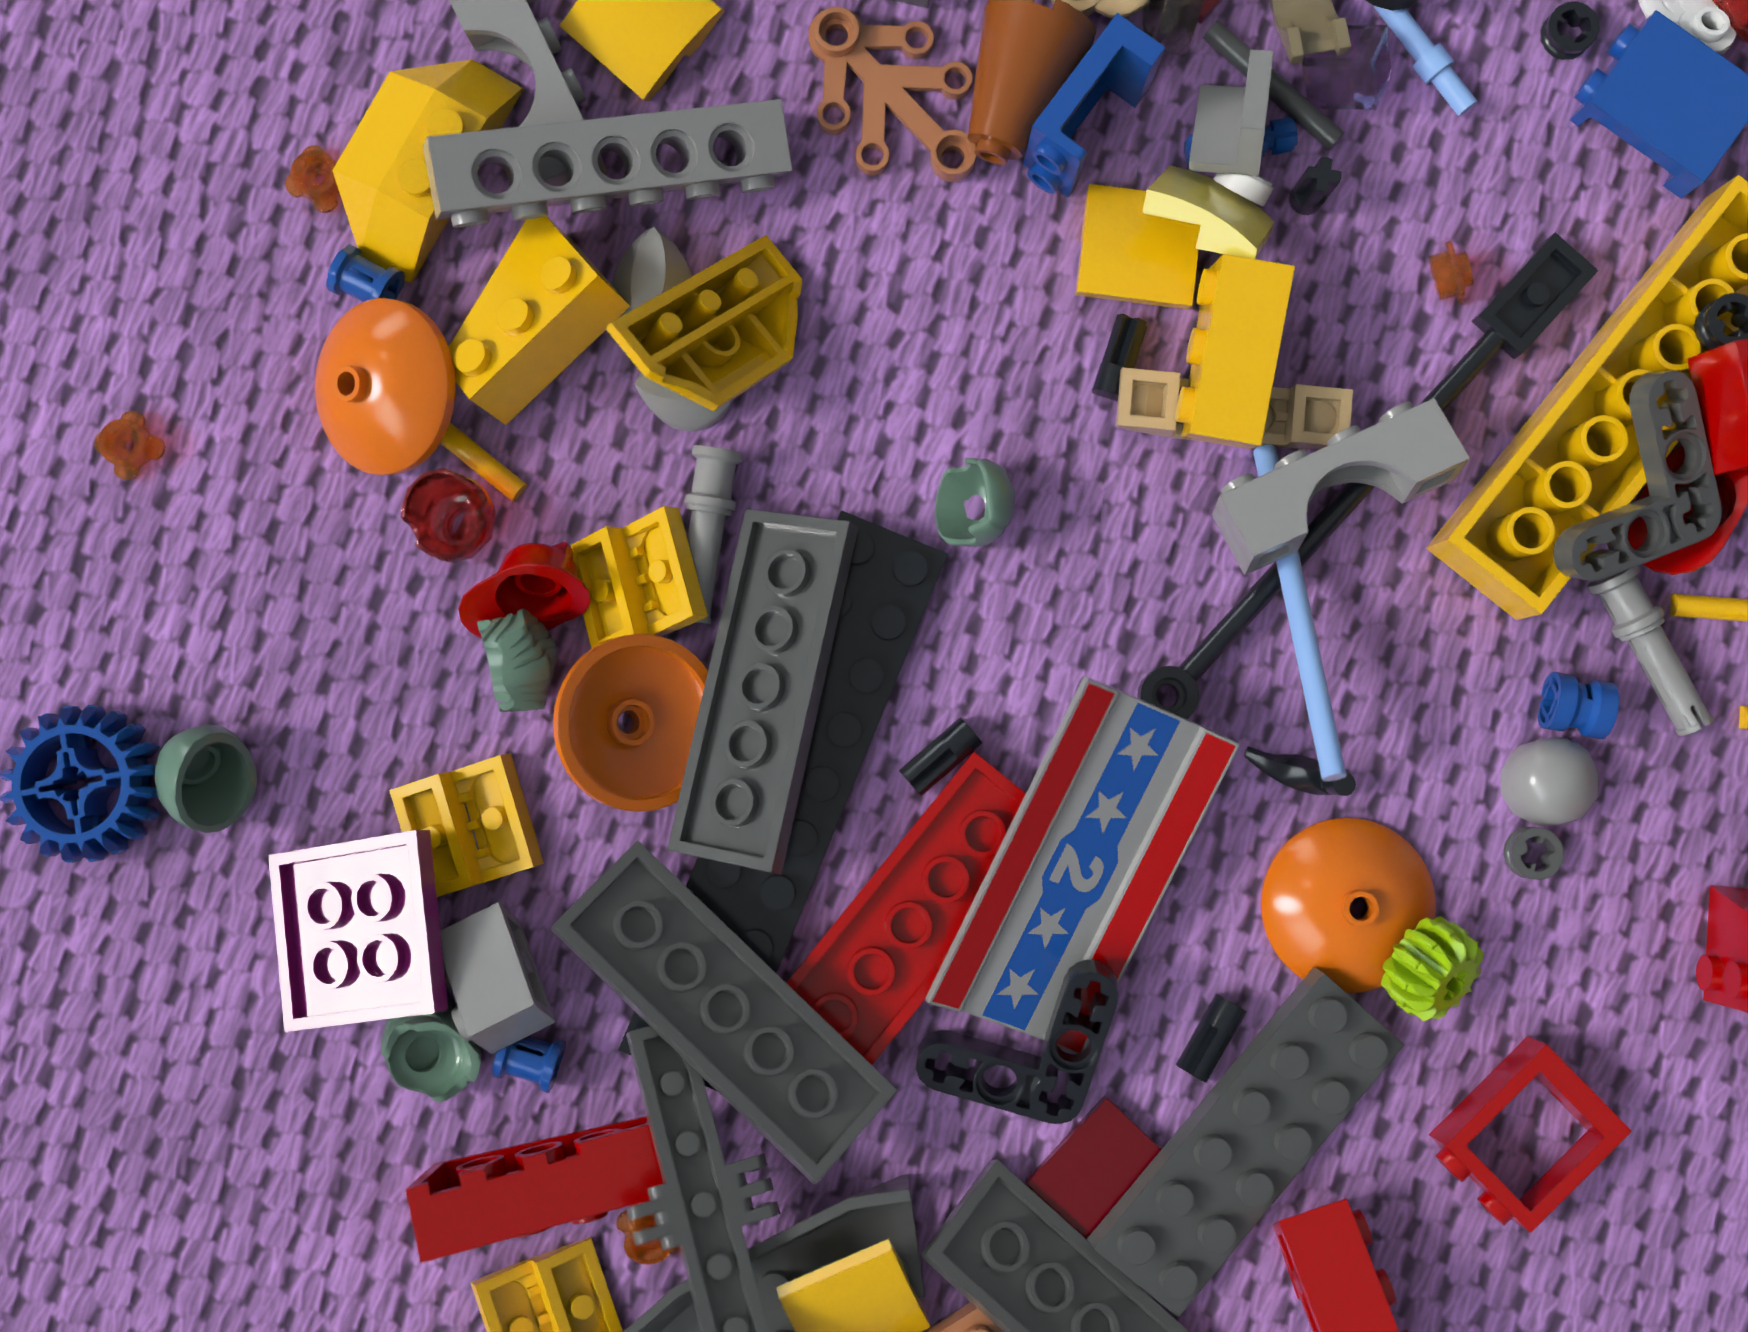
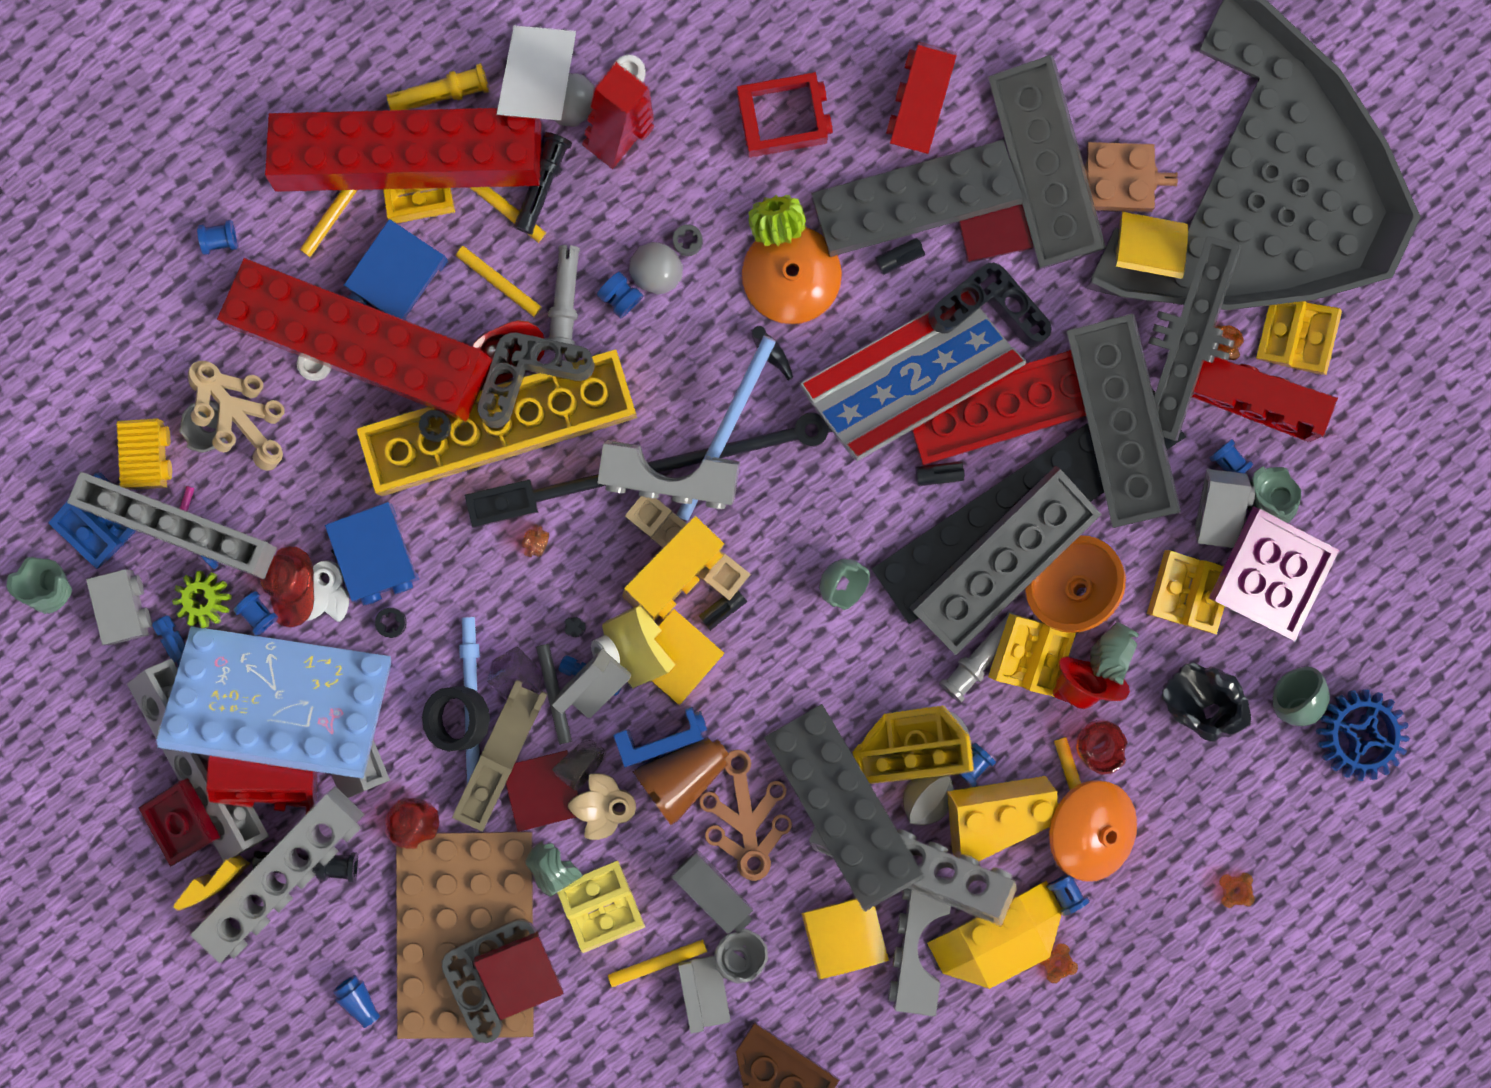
camera: 150 degrees left, 0 degrees up
(368, 694) = (1200, 687): none -> black hair
(614, 375) = (981, 762): none -> blue bush
(759, 174) = (844, 808): none -> dark grey plate

